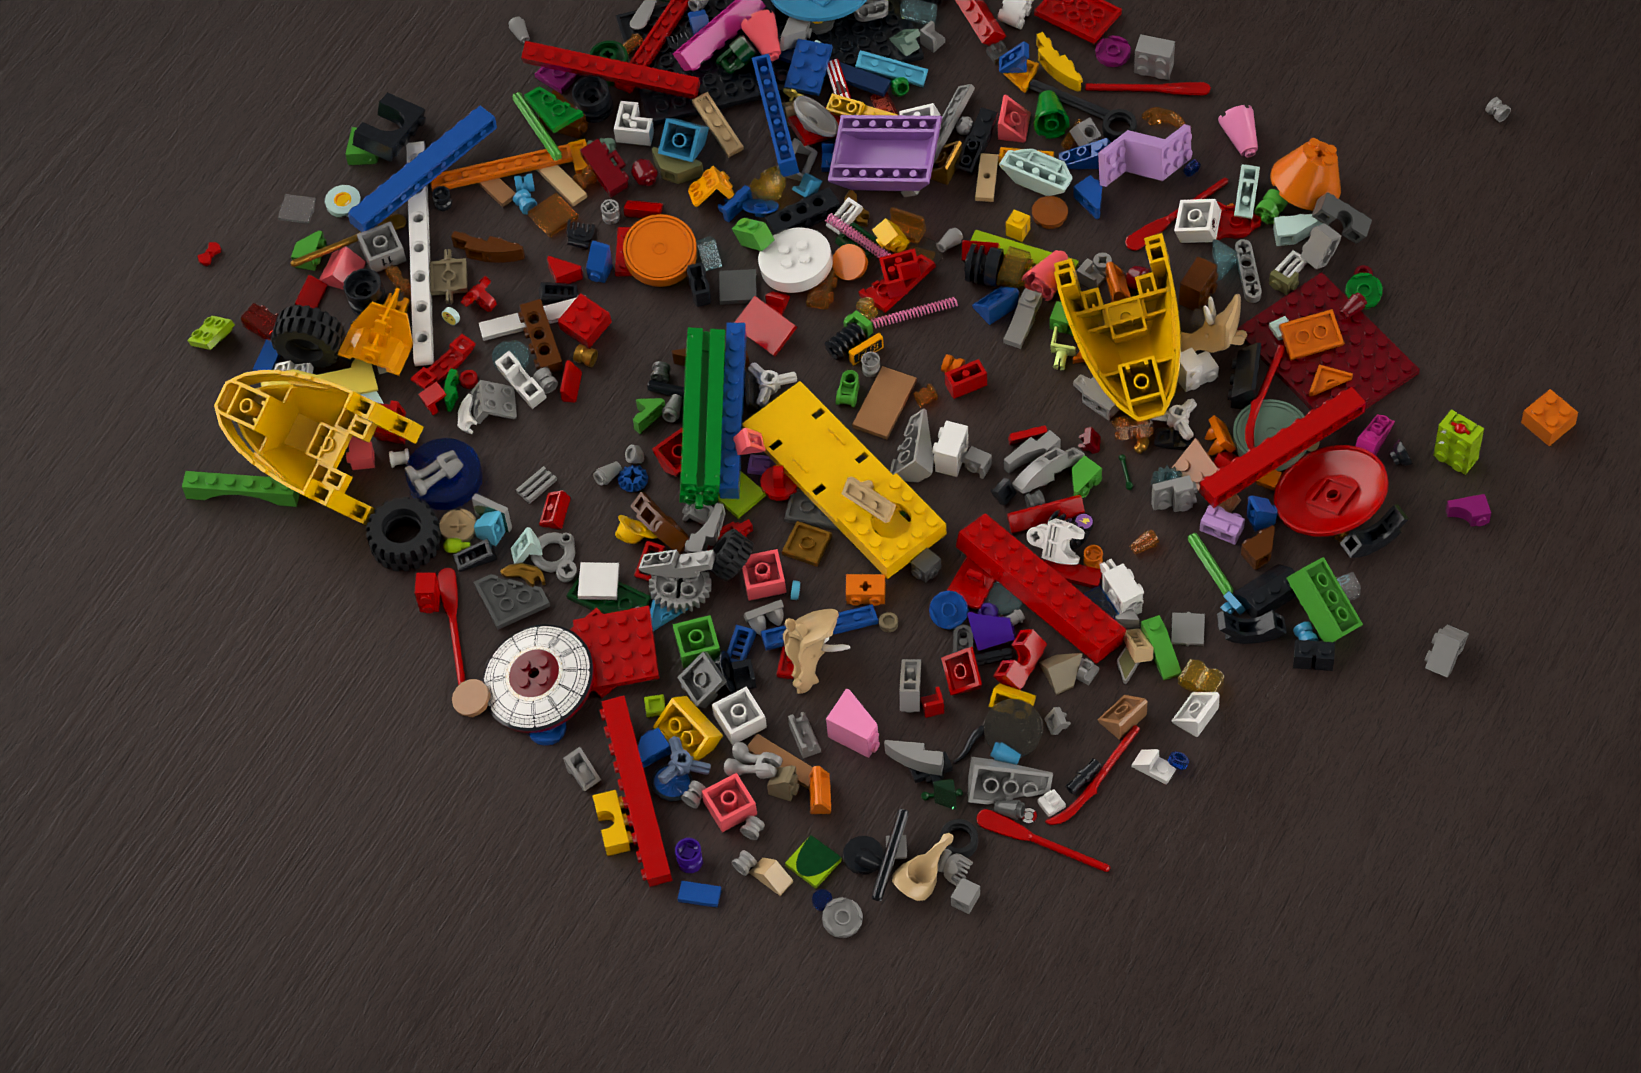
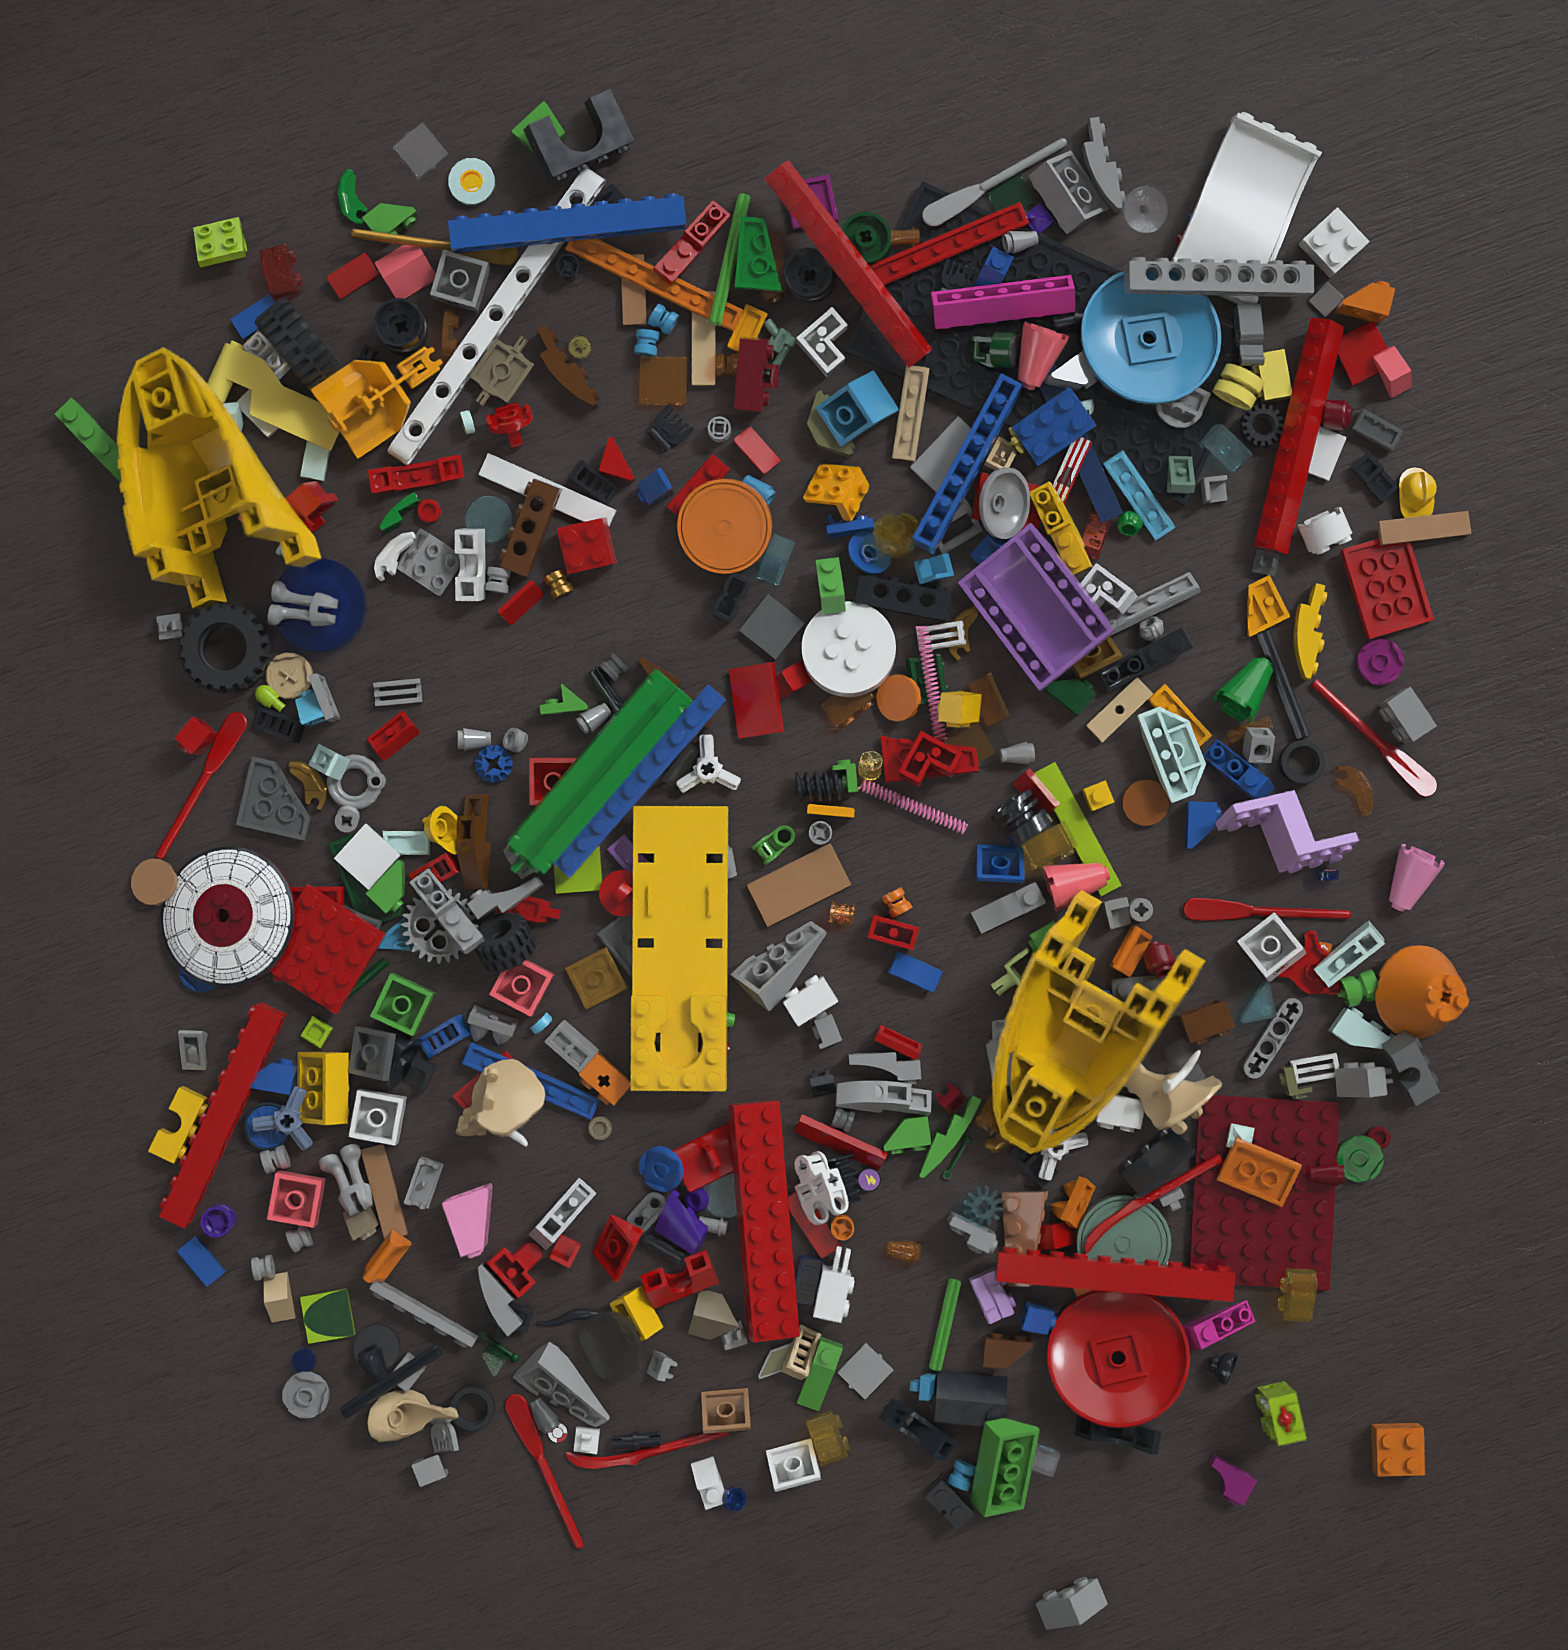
camera: 30 degrees right, 30 degrees up
(213, 249) = (301, 132): red piece -> none
(274, 262) = (348, 201): none -> green piece
(356, 555) = (169, 626): none -> light grey tile
(431, 396) = (373, 509): red panel -> none
(485, 232) = (579, 346): none -> clear smoke tile
(507, 134) = (692, 243): none -> red slope
(519, 29) = (812, 112): light grey cone -> none
(623, 555) = (408, 842): none -> light aqua tile
(629, 585) = (390, 888): none -> bright green slope
(644, 172) = (790, 410): dark red head -> none
(659, 652) = (370, 974): none -> dark green bar
(748, 442) = (617, 842): coral slope -> none
(757, 134) = (939, 457): none -> light grey tile
(826, 585) = (571, 1046): none -> light grey hinge
(864, 496) = (670, 1009): tan piece -> none
(874, 808) = (424, 1314): none -> light grey plate
(909, 730) = (513, 1269): none -> red brick
(925, 565) = (681, 1103): dark grey brick -> none
(948, 190) = (1071, 694): none -> dark green slope
(997, 392) = (915, 972): none -> blue slope
(1004, 753) = (582, 1361): dark azure cone -> none
(1013, 121) = (1204, 666): coral slope -> none
(1015, 60) = (1265, 597): blue slope -> none
(1109, 460) = (943, 1143): none -> bright green slope
(1128, 619) = (817, 1323): light grey slope -> none
(1274, 390) = (1172, 1198): none -> light grey tile
(1328, 378) = (1230, 1229): orange tile -> none
(1403, 380) = (1298, 1295): none -> clear yellow brick

